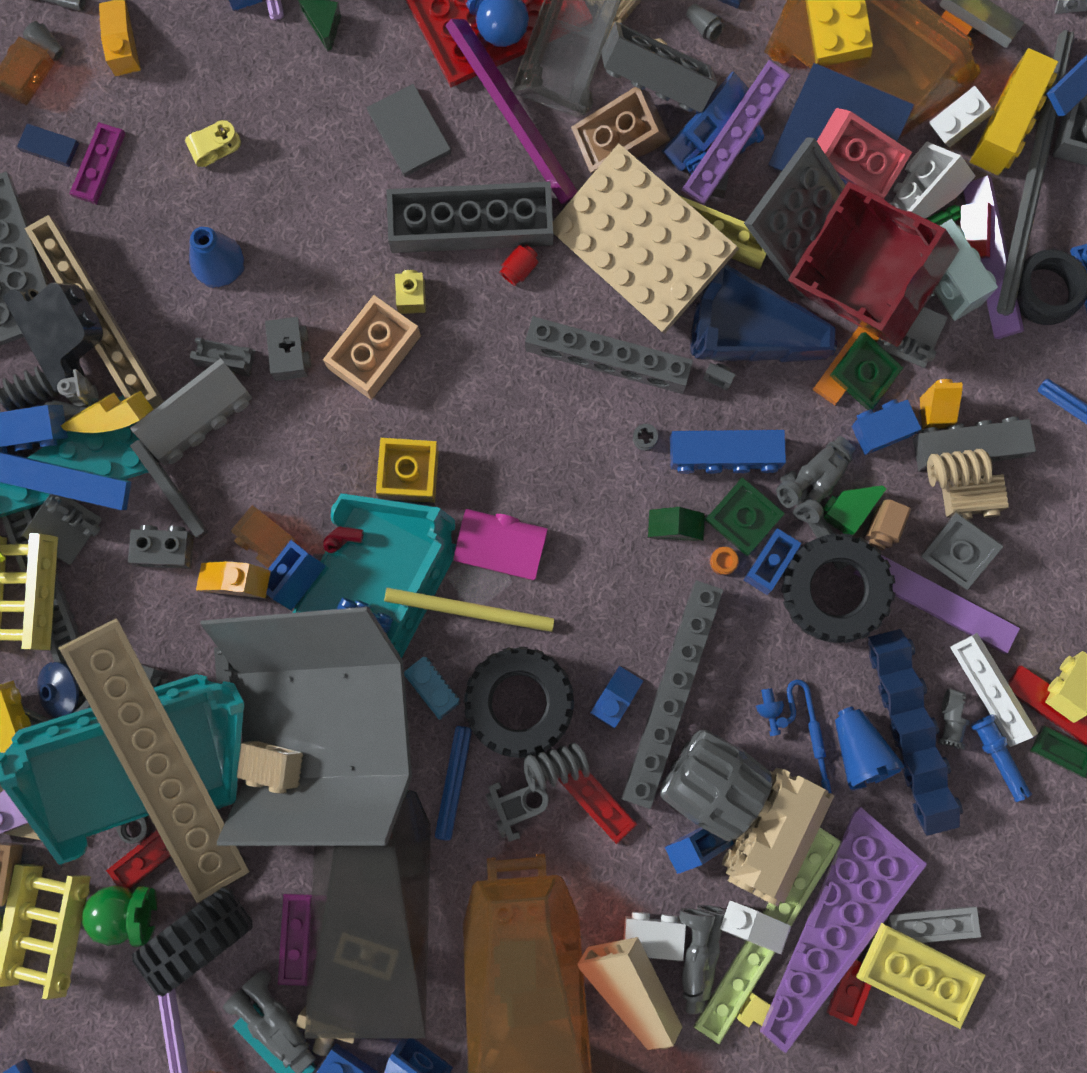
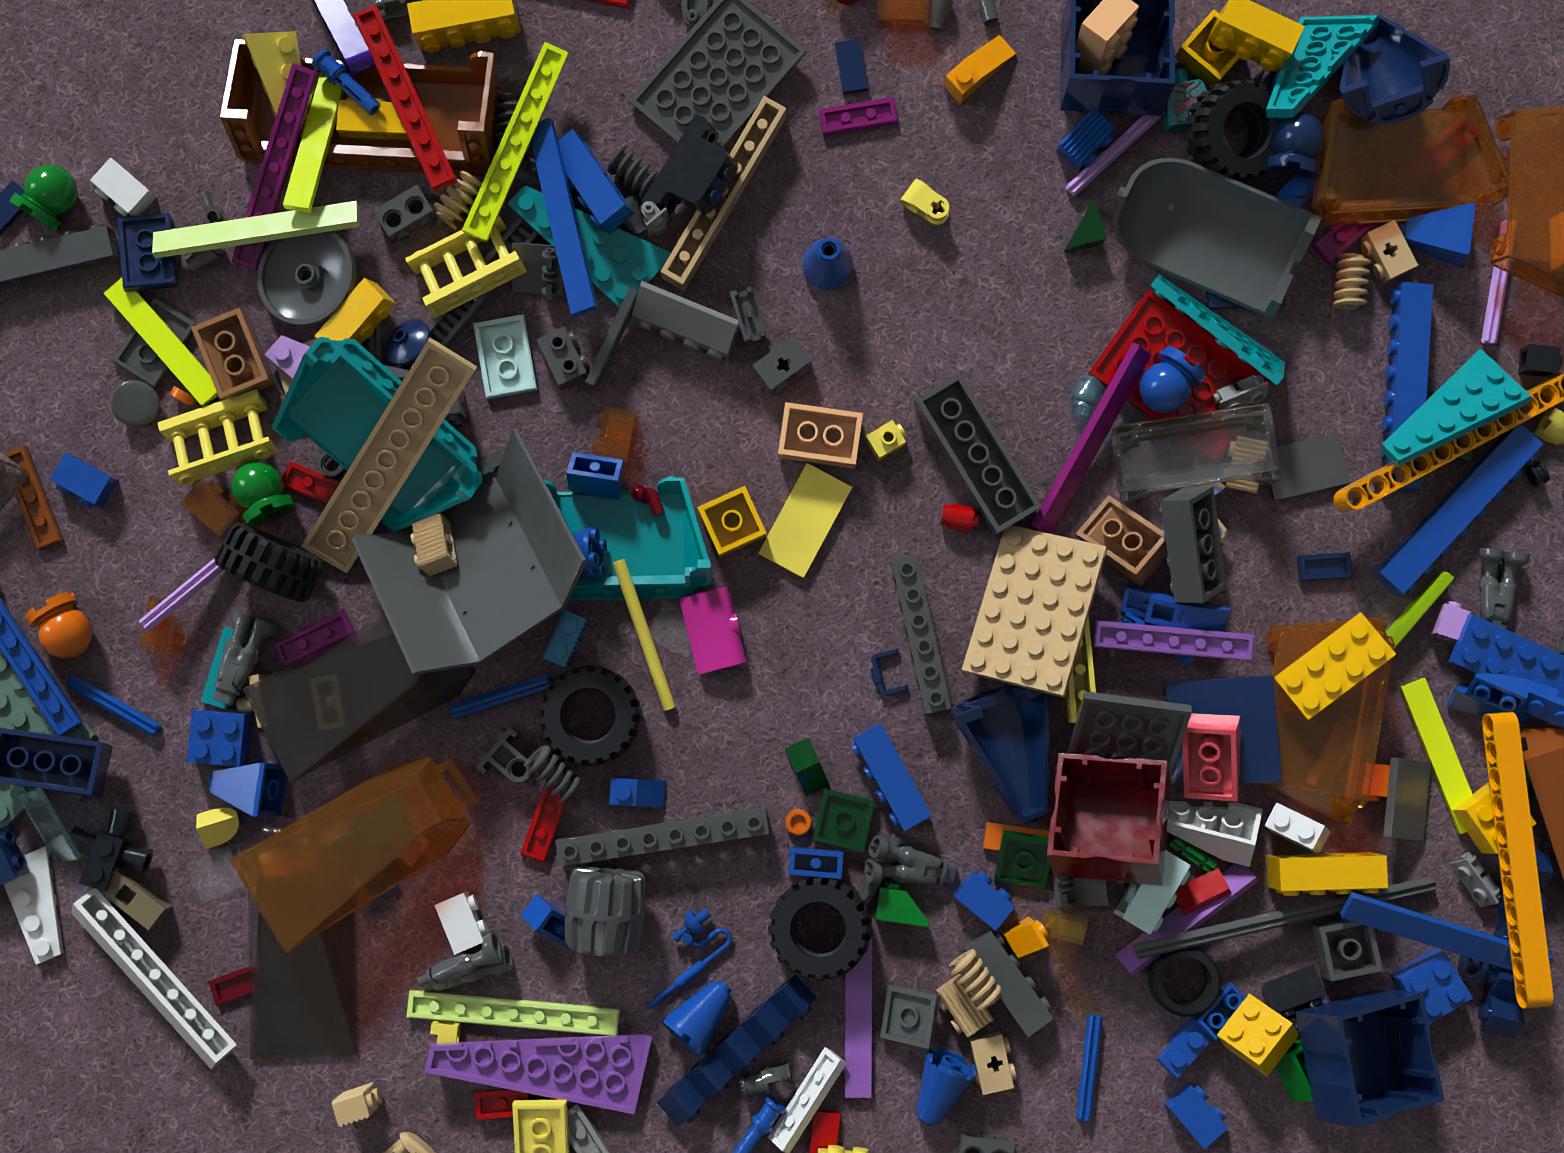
camera: 60 degrees right, 5 degrees up
(106, 974) = (212, 507): none -> clear orange brick
(109, 414) = (645, 256): yellow slope -> none
(135, 602) = (505, 356): none -> light aqua tile
(233, 579) = (566, 431): light orange slope -> none
(408, 130) = (1029, 359): dark grey tile -> none
(444, 406) = (805, 520): none -> light yellow tile
(470, 96) = (1086, 395): none -> clear light blue head
(622, 415) = (877, 673): none -> dark blue piece
(633, 990) = (410, 927): tan slope -> none
(639, 443) = (876, 703): dark grey bush -> none
(707, 23) = (1267, 561): dark grey cone -> none
(719, 375) = (953, 737): dark grey plate -> none
(755, 927) = (510, 999): white slope -> none
(779, 838) = (590, 982): tan brick -> none
(887, 524) = (896, 943): medium nougat brick -> none
(948, 361) = (1065, 925): none -> clear yellow brick
(1027, 502) = (989, 1078): none -> tan brick
(1041, 554) = (942, 1084): none -> blue cone

